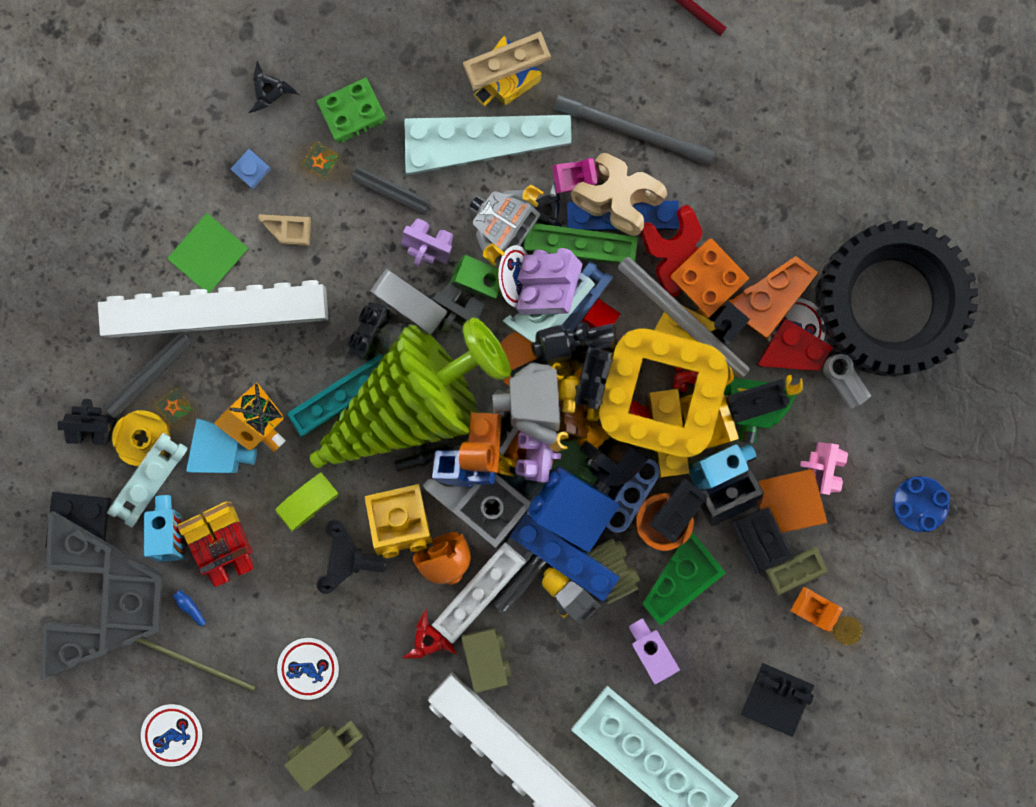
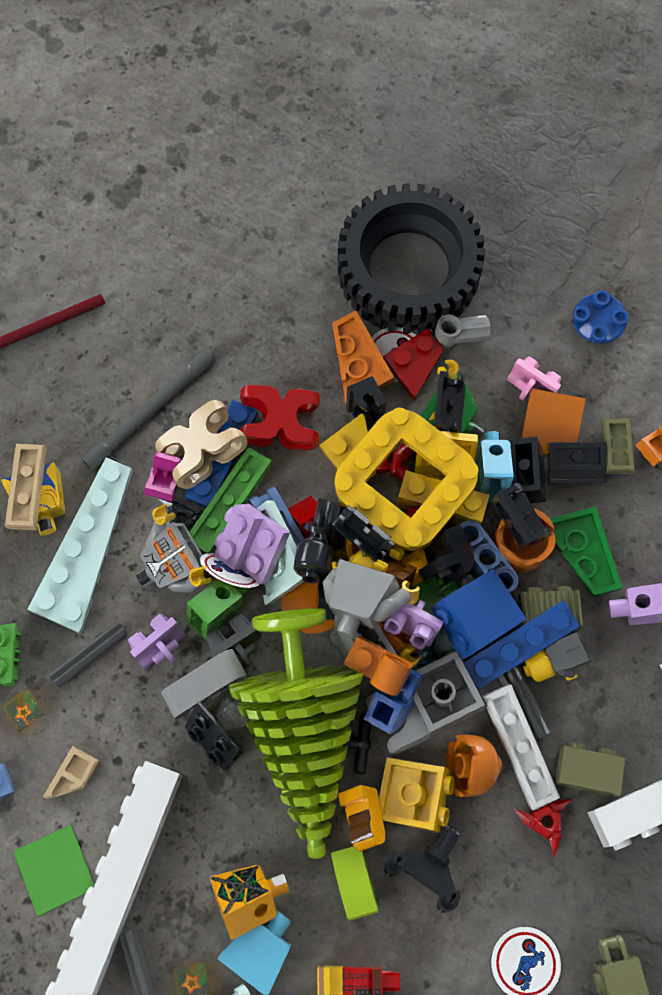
camera: 65 degrees left, 15 degrees down
(331, 400) = (263, 805): teal tile -> none
(360, 486) = (363, 816): none -> light orange leg
(680, 314) = (325, 444): light grey axle -> none
(709, 277) = (317, 399): orange bracket -> none

